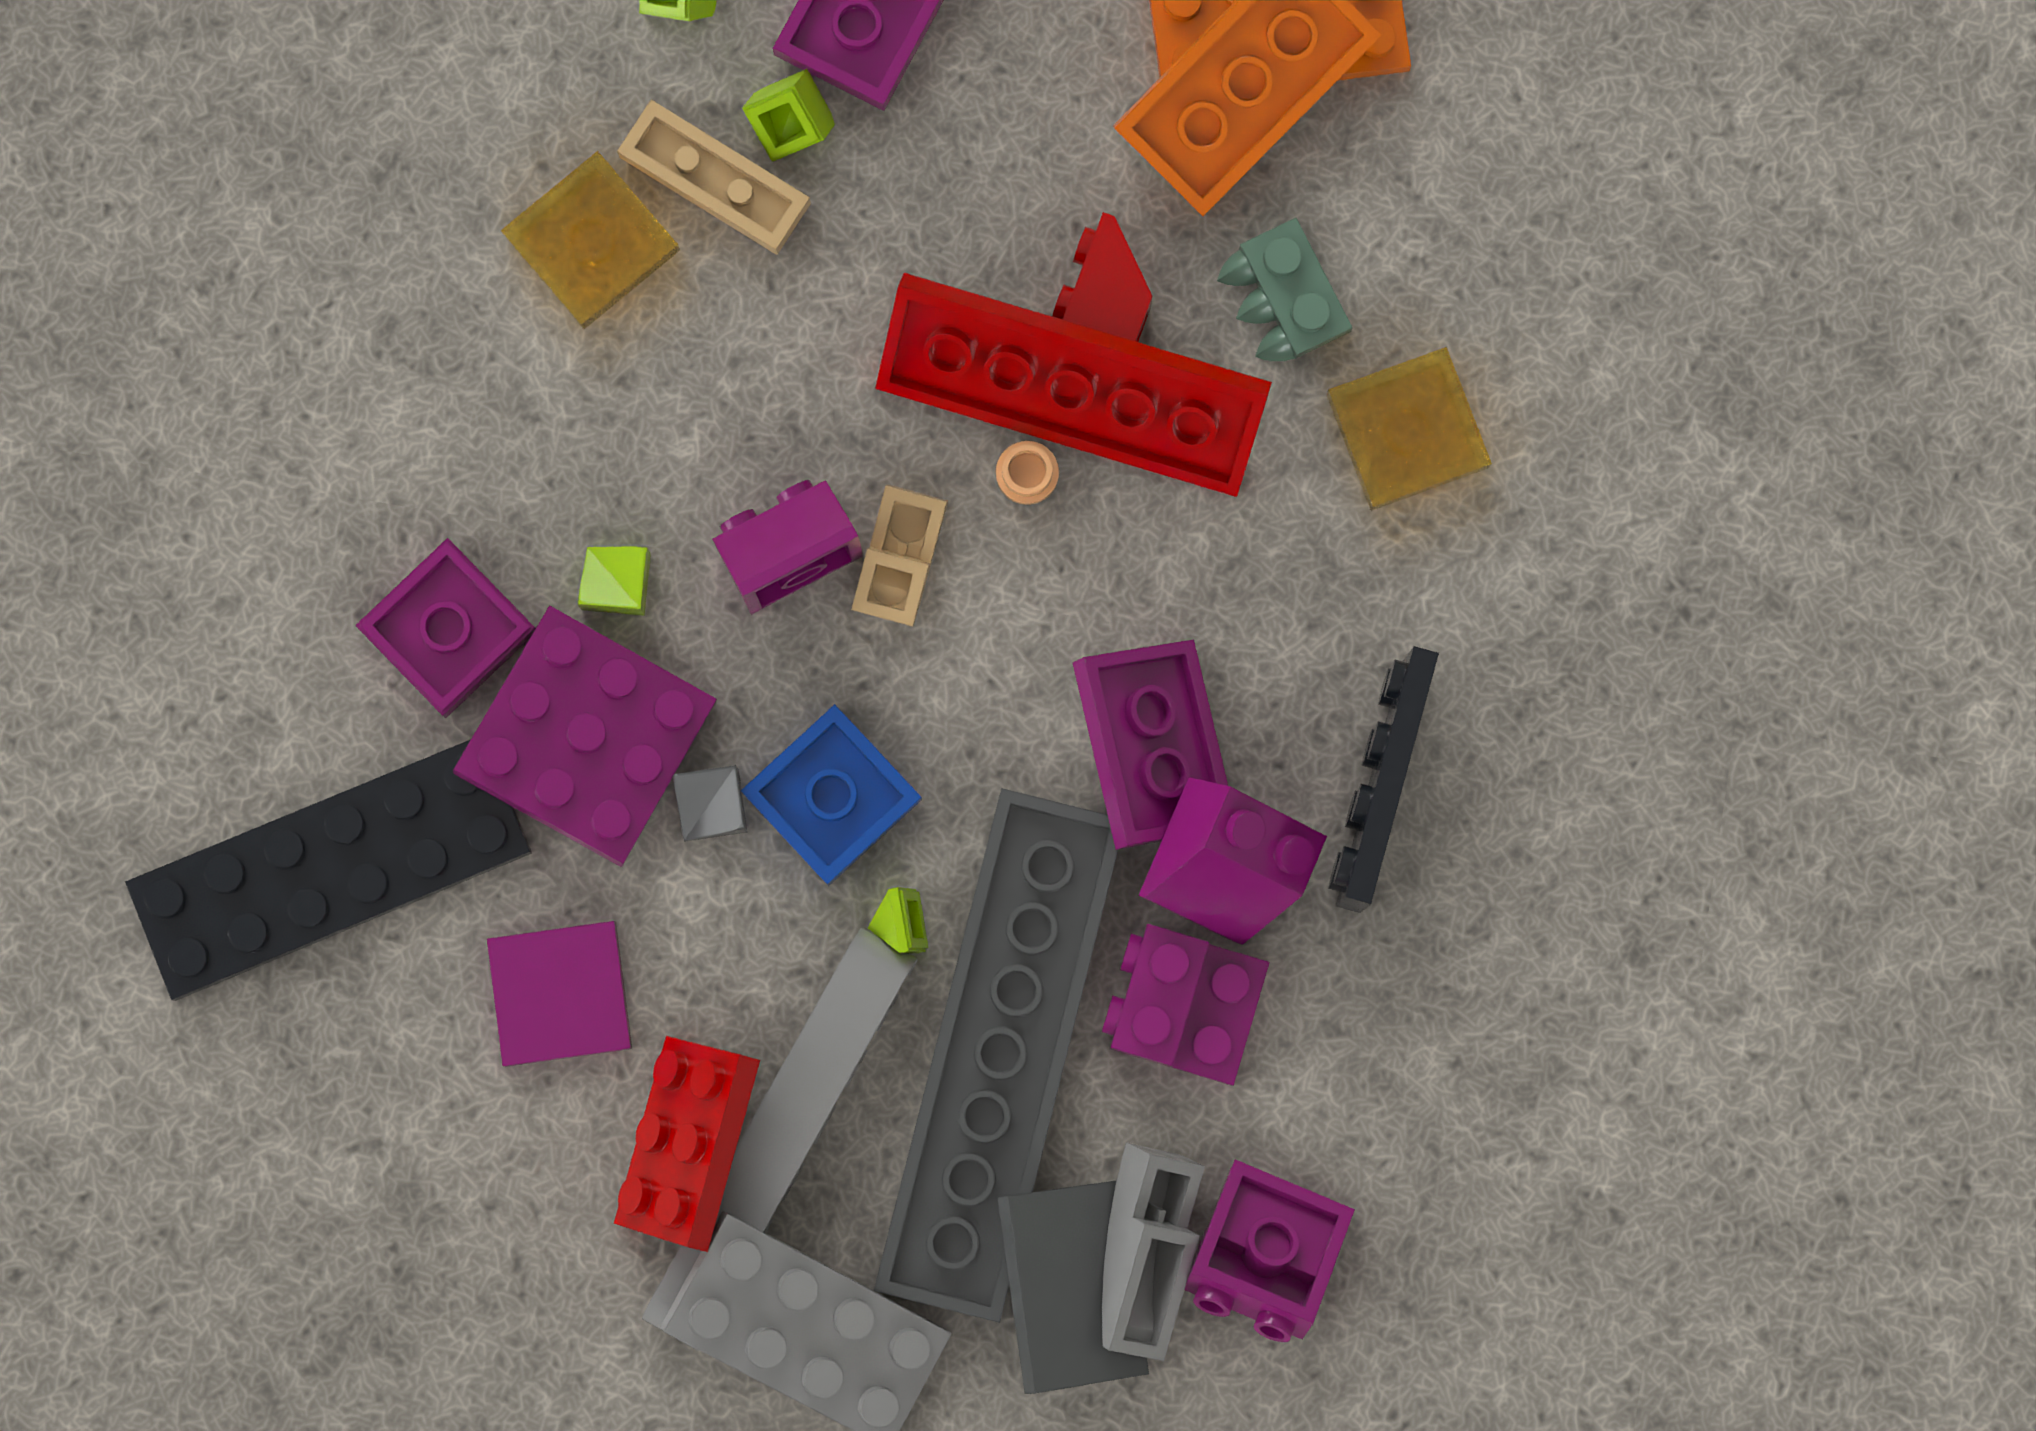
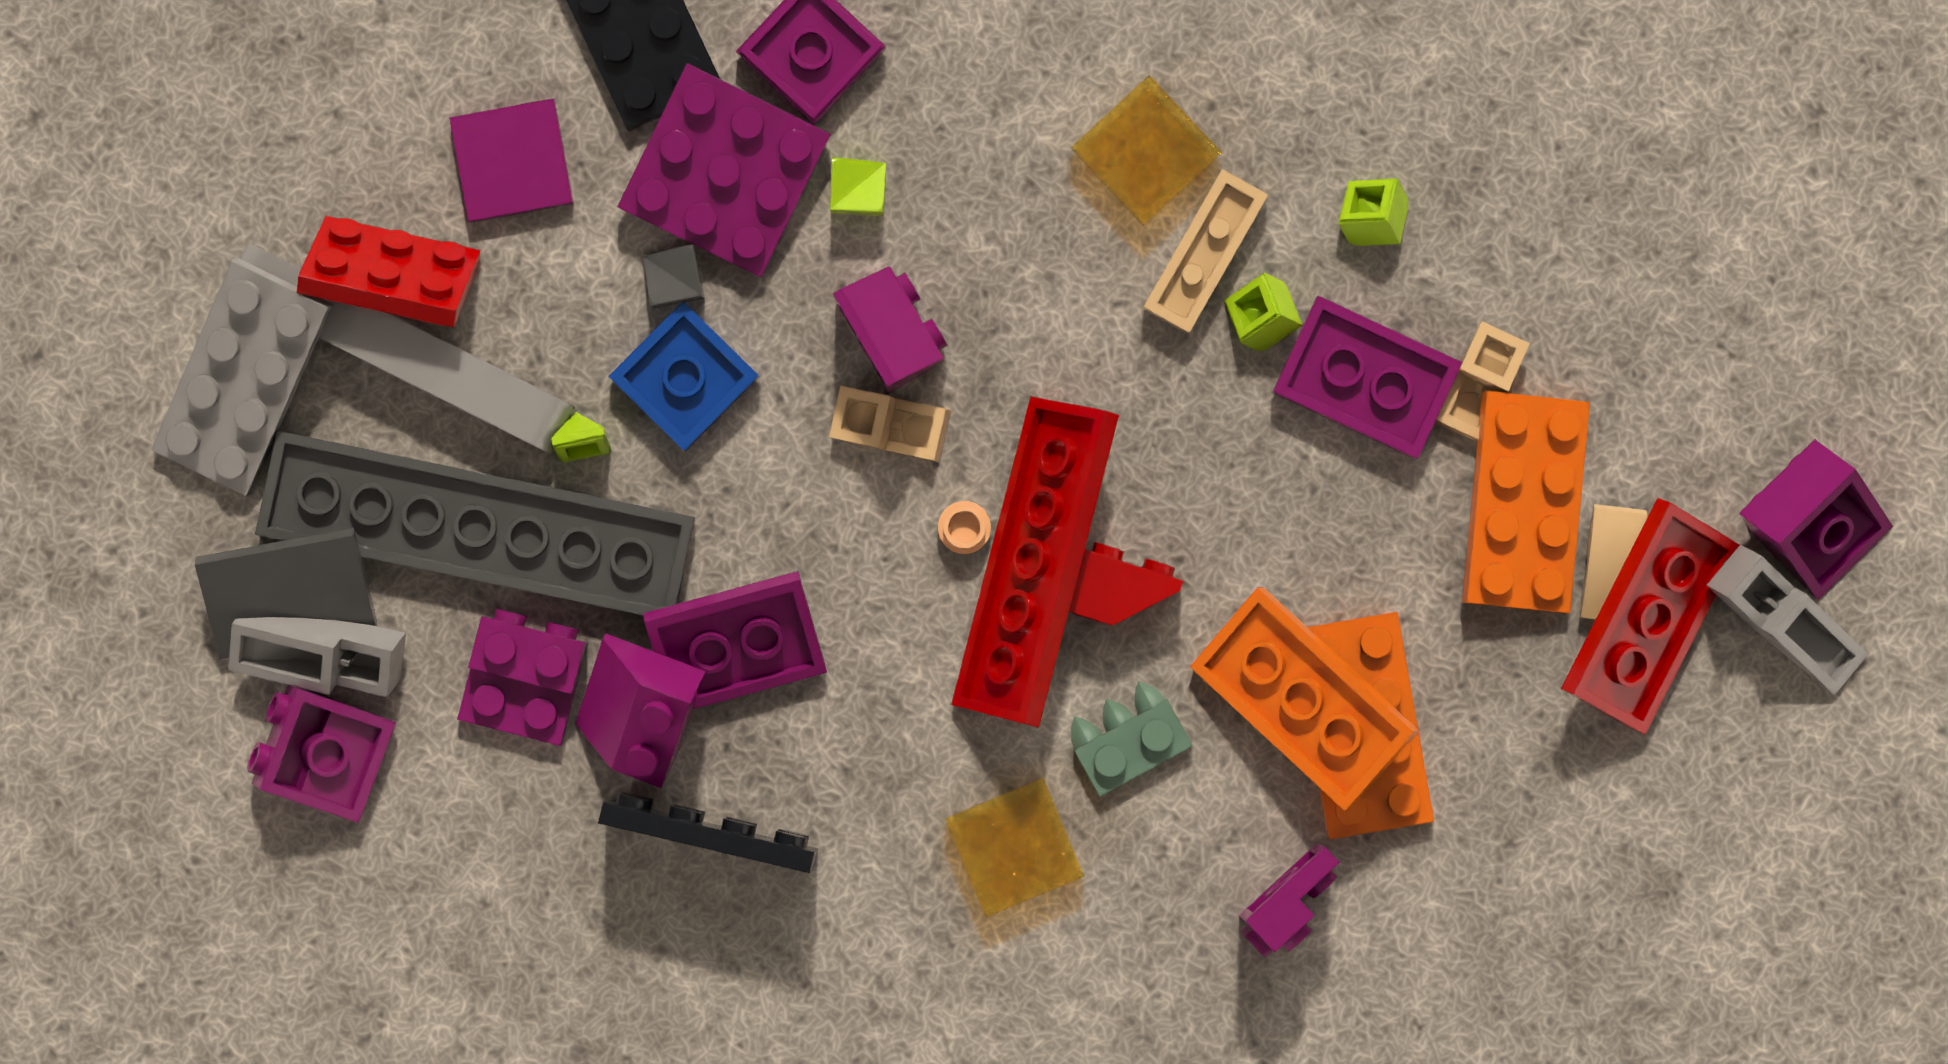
camera: 85 degrees right, 5 degrees up
(1494, 118) = (1278, 913): none -> magenta plate

